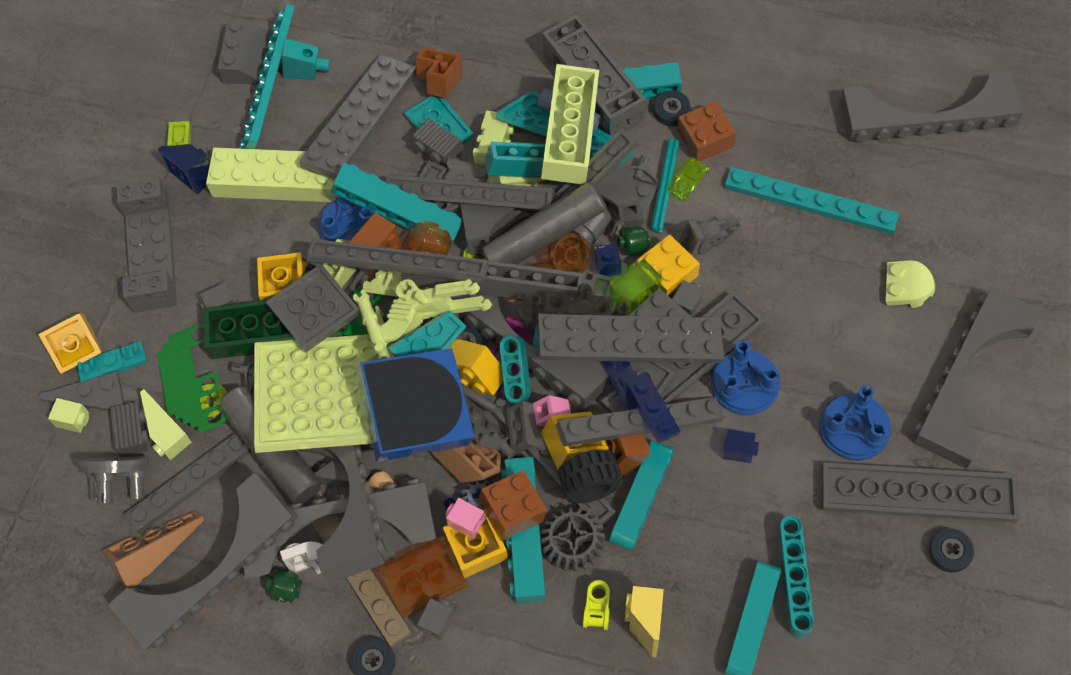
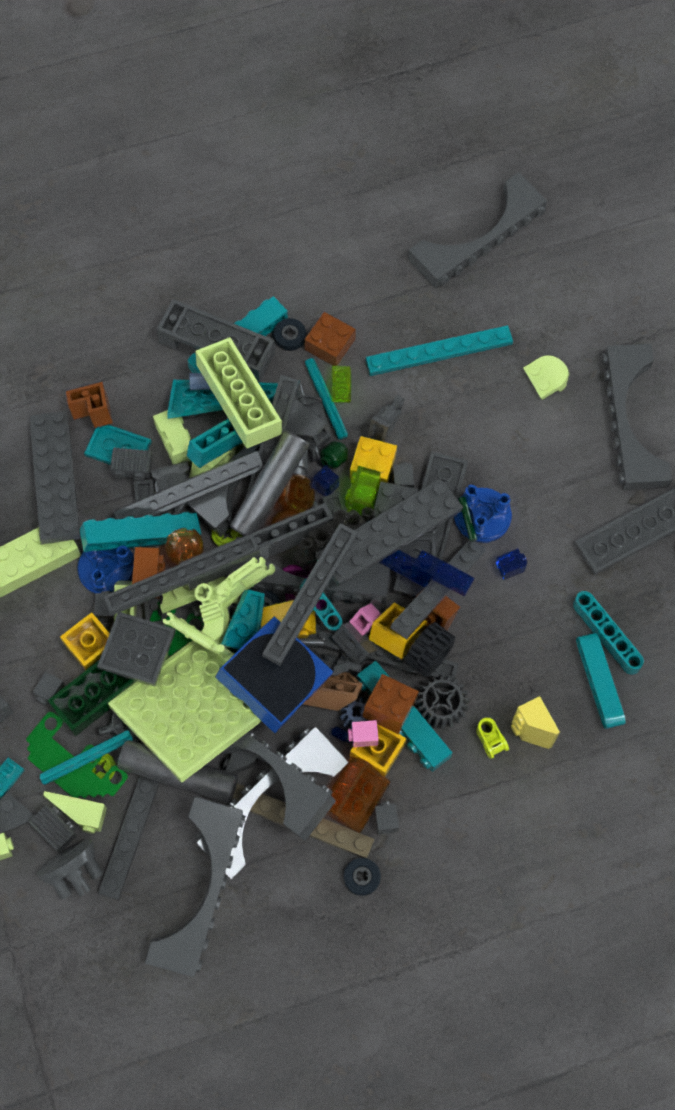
camera: 40 degrees left, 5 degrees up
(139, 557) = (138, 909): medium nougat wedge -> none
(201, 382) = (85, 757): none -> teal axle
(284, 586) = (261, 866): dark green head -> none
(301, 556) = (267, 830): white slope -> none
(379, 480) = (277, 745): light nougat piece -> none
(499, 346) = (309, 594): none -> dark grey plate
(641, 496) = (469, 643): teal beam -> none
(723, 372) = (467, 519): none -> dark green piece
(855, 426) = (577, 501): blue piece -> none

